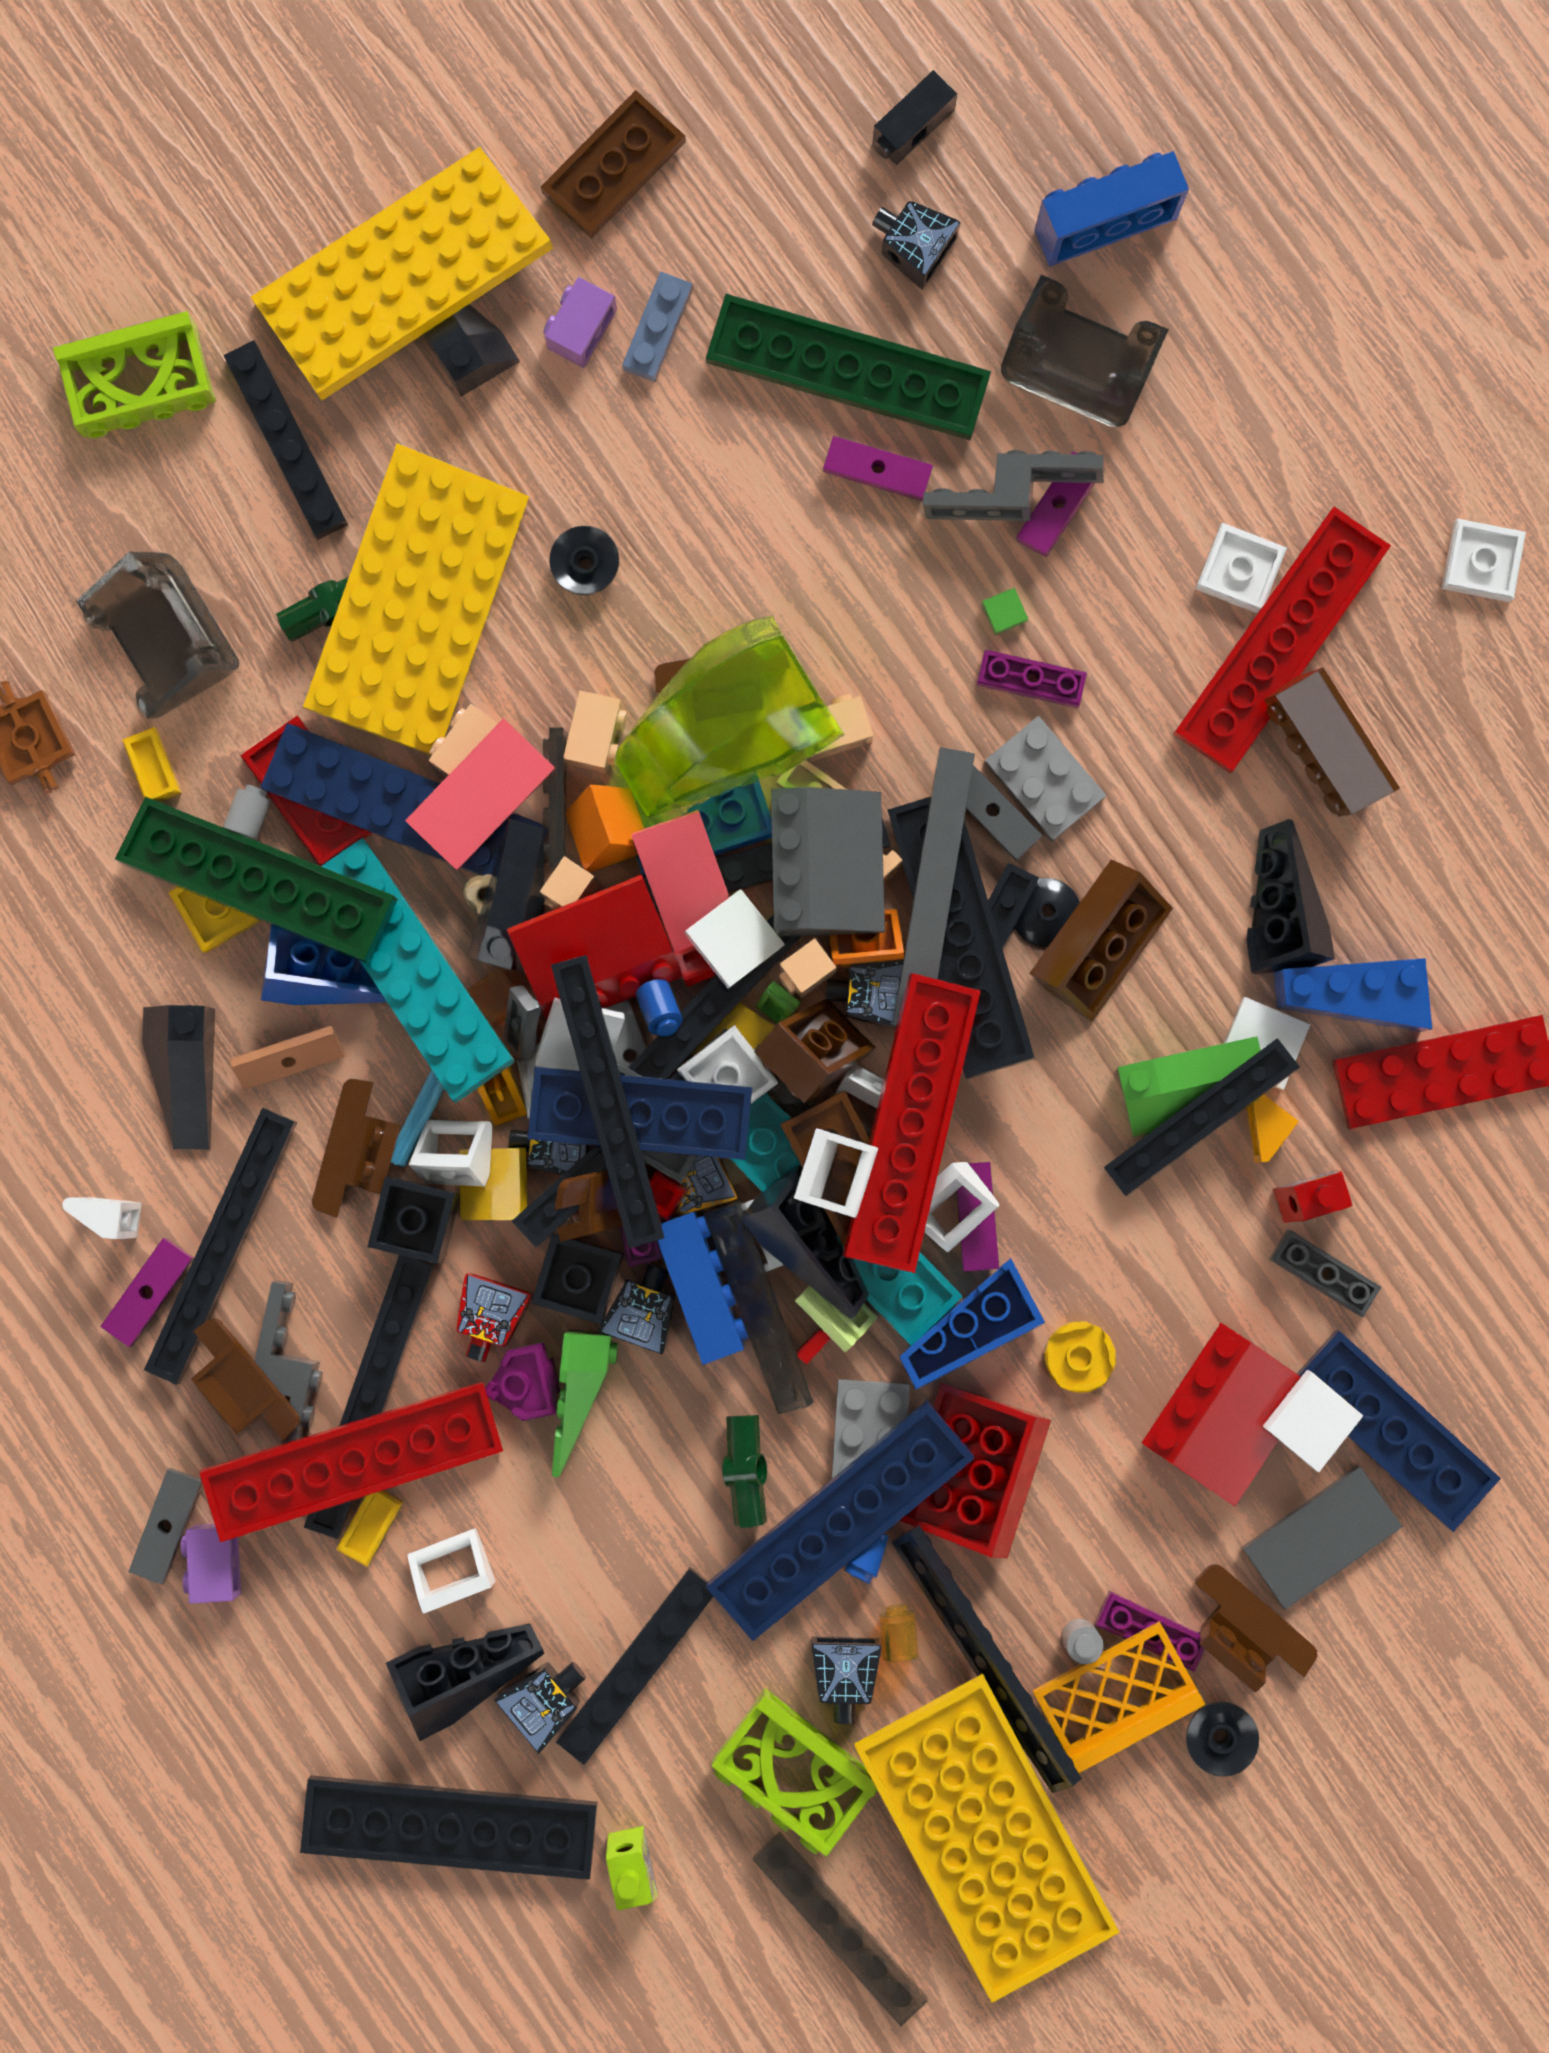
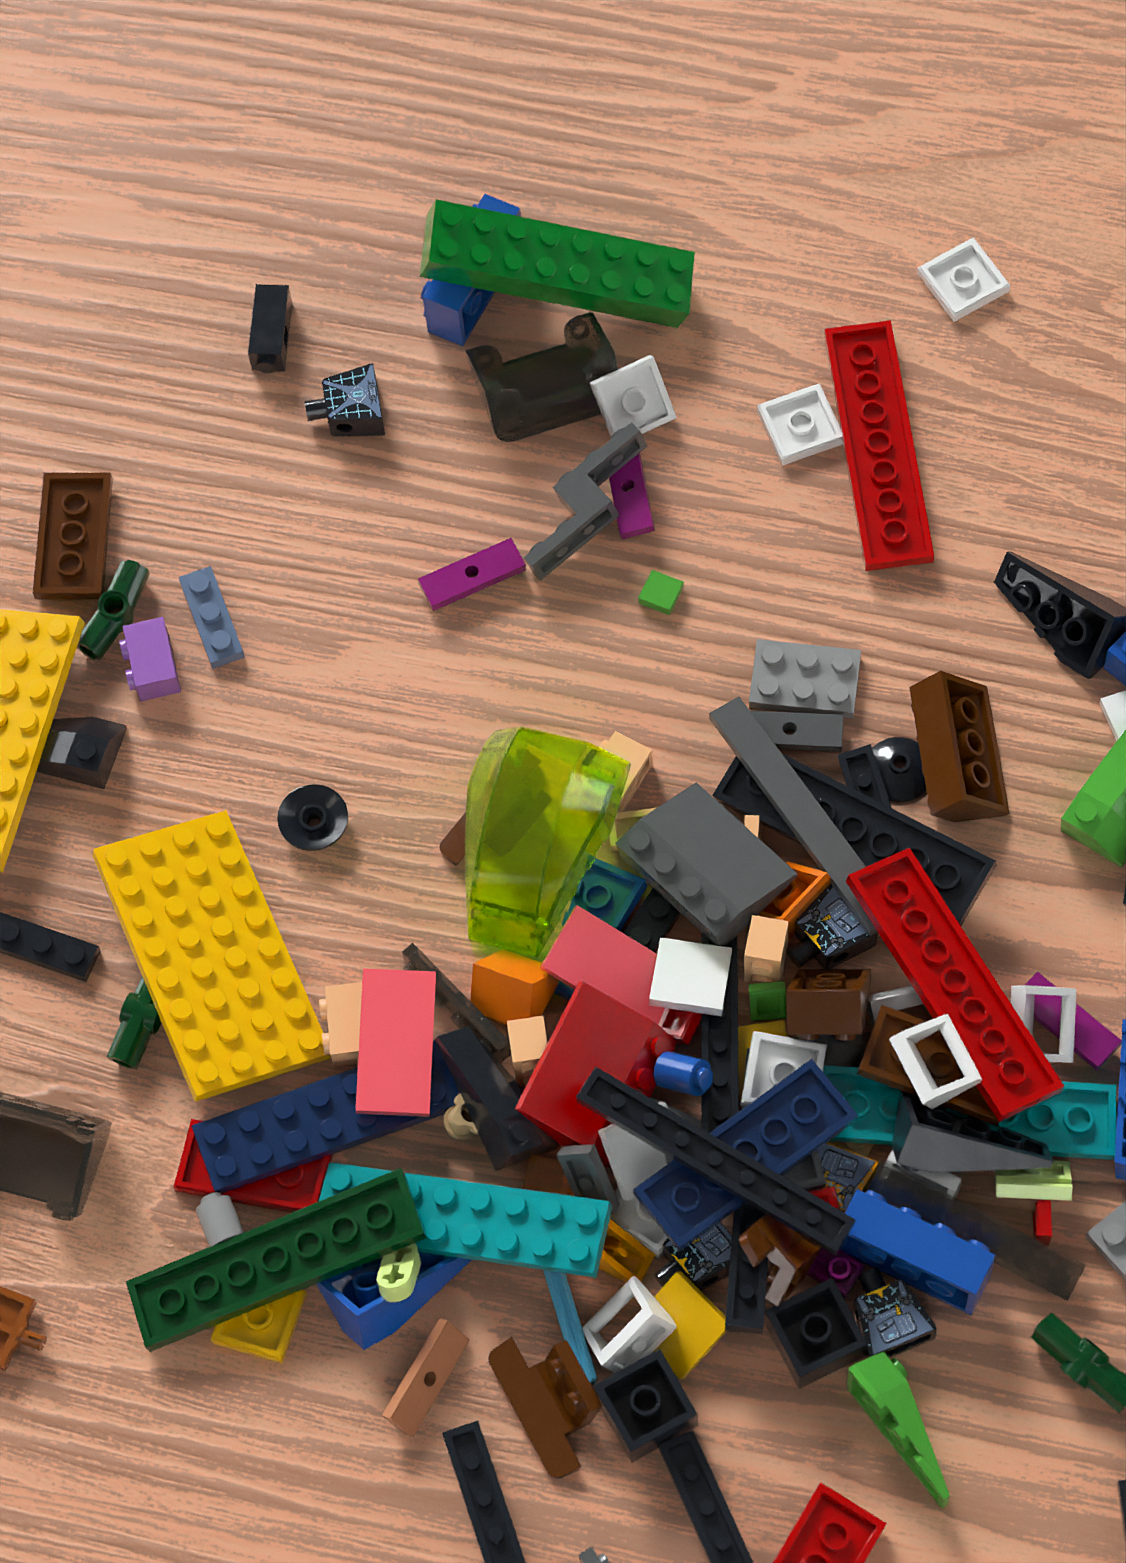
camera: 40 degrees left, 20 degrees down
(151, 765) = (106, 1257): yellow tile -> none
(181, 1061) = (336, 1457): black wedge -> none
(332, 972) = (399, 1265): none -> yellowish green beam
(489, 1313) = (772, 1426): torso -> none
(526, 1383) = (852, 1455): magenta plate -> none
(594, 732) = (437, 929): light nougat brick -> none
(608, 246) = (122, 594): none -> dark green piece
(848, 366) = (382, 526): dark green plate -> none
(1009, 674) = (709, 629): magenta tile -> none
(1130, 433) = (634, 396): none -> white tile
(1171, 264) = (557, 264): none -> green brick
(1330, 743) = (984, 474): slope -> none

